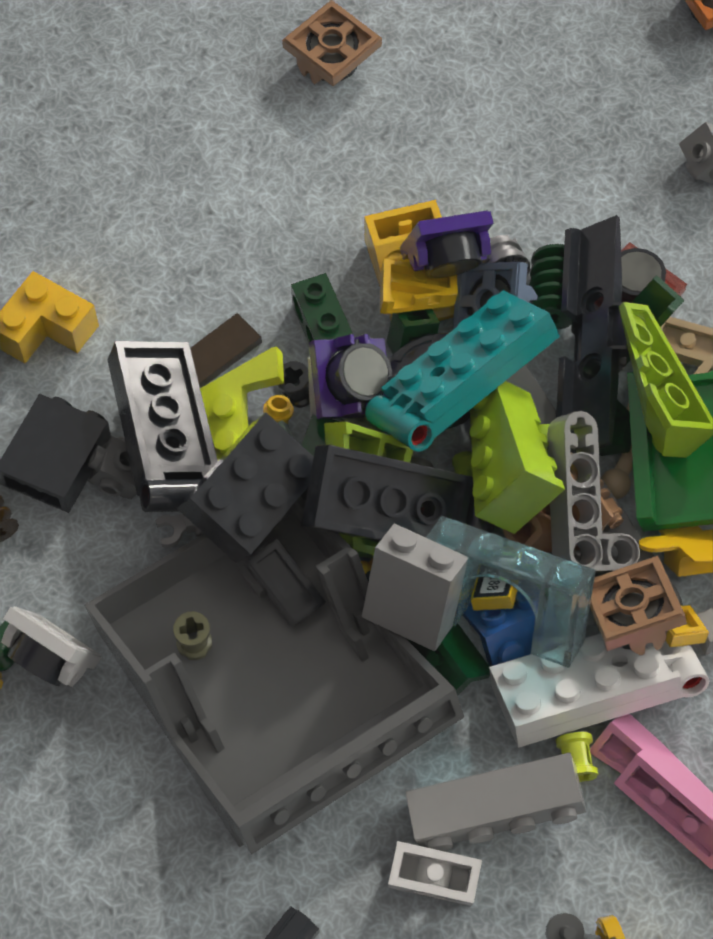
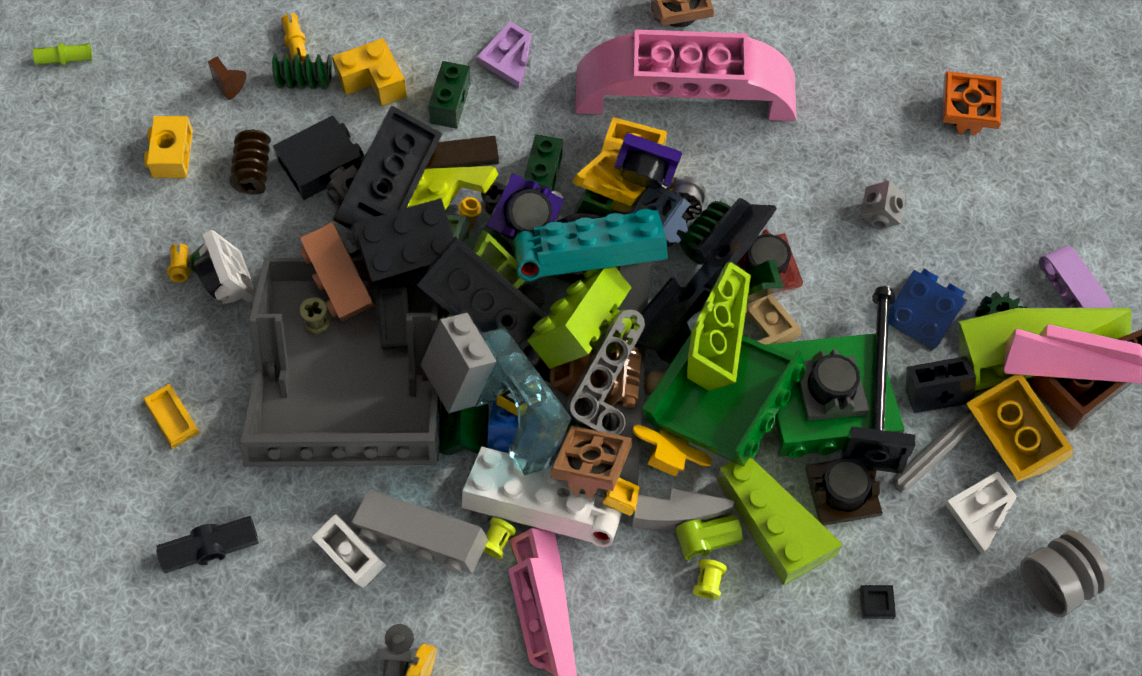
camera: 30 degrees right, 0 degrees up
(105, 853) = (171, 416): none -> yellow tile
(153, 294) = (449, 94): none -> dark green brick
(182, 212) = (507, 54): none -> lavender wing
(186, 570) = (335, 272): none -> nougat brick
(395, 123) = (686, 67): none -> bright pink slope

